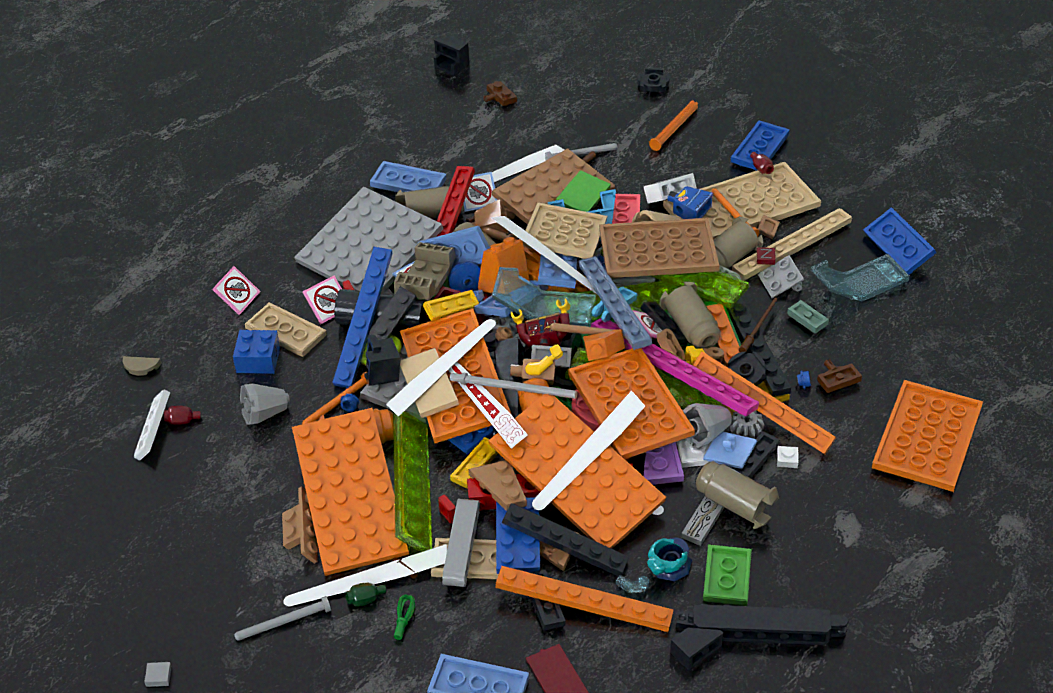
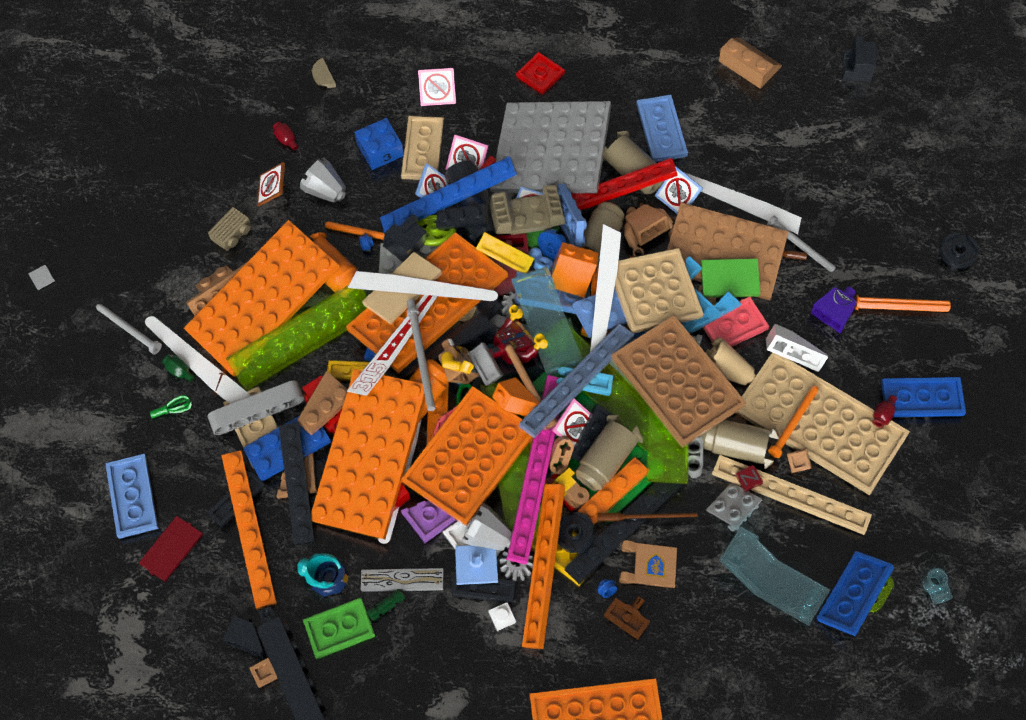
camera: 60 degrees right, 20 degrees up
(151, 424) = (263, 122): white tile -> none
(227, 441) = (271, 184): none -> piece
(246, 493) = (230, 229): none -> dark tan brick
(283, 228) = (540, 73): none -> red tile
(337, 332) = (430, 181): none -> piece
(393, 111) = (748, 61): none -> medium nougat slope
(446, 508) = (290, 375): red tile -> none
(500, 93) = (839, 131): reddish brown plate -> none
(503, 333) = (495, 313): medium nougat plate -> none
(591, 449) = (399, 454): white sticker -> none
(635, 586) = (286, 559): clear light blue arm -> none
(653, 156) = (835, 308): none -> dark purple torso
(691, 202) = (776, 377): blue torso -> none
(727, 529) = (385, 605): none -> dark green axle
(736, 492) = (417, 593): dark tan piece -> none
(739, 646) = (263, 672): none -> medium nougat plate
(801, 346) = (653, 565): none -> medium nougat flag
(808, 316) = (694, 554): sand green plate -> none
(916, 200) = (938, 593): none -> clear light blue piece

